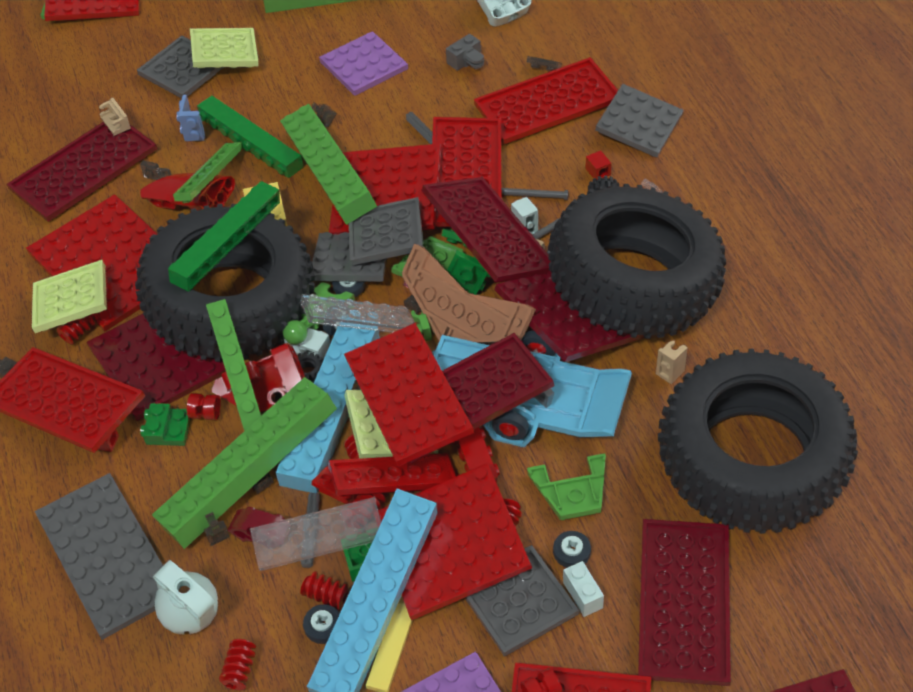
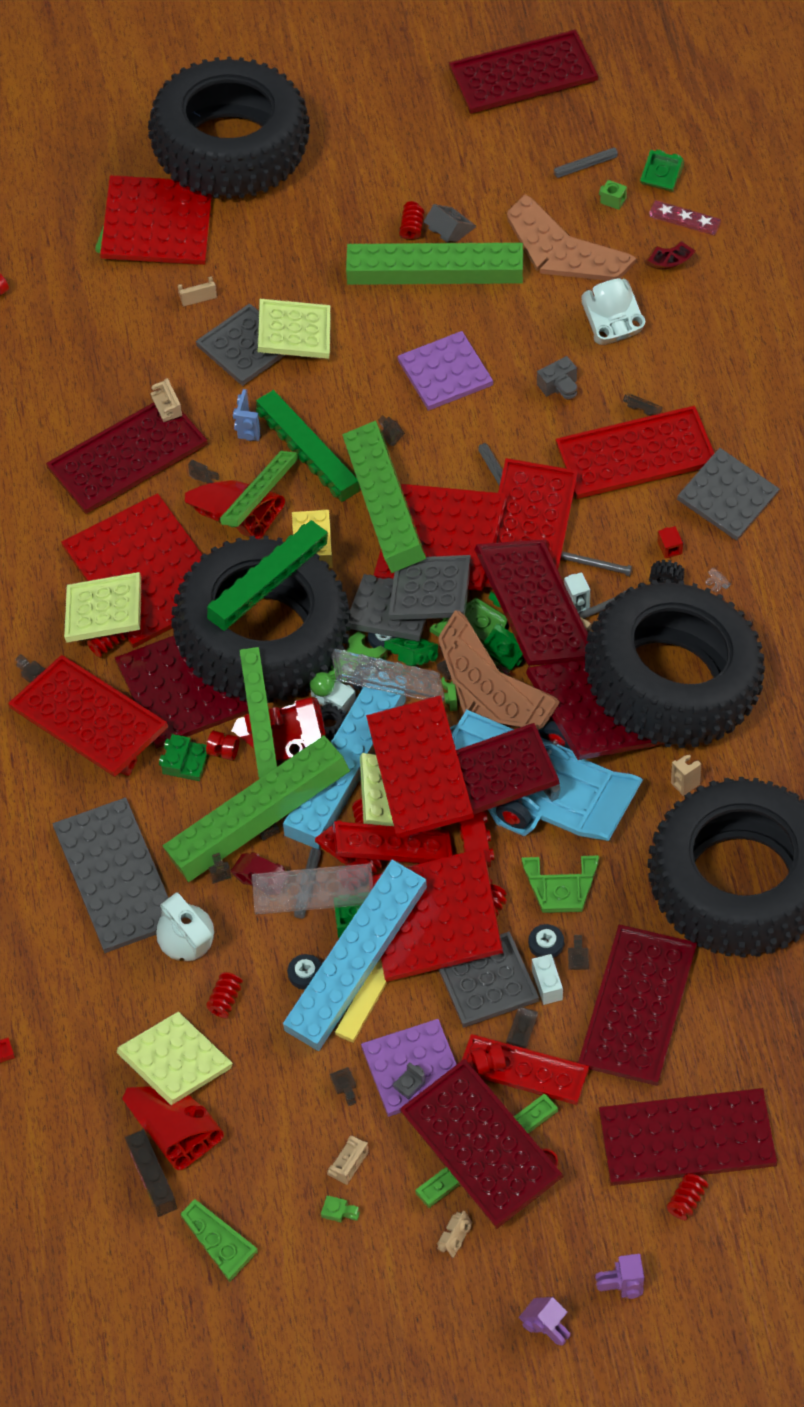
camera: 10 degrees right, 5 degrees up
(134, 35) = (197, 293): none -> tan hinge
(324, 591) = (311, 942): red piece -> none
(378, 291) = (412, 651): none -> green plate
(568, 646) = (522, 1027): none -> clear smoke plate
(608, 558) = (578, 956): none -> clear smoke plate

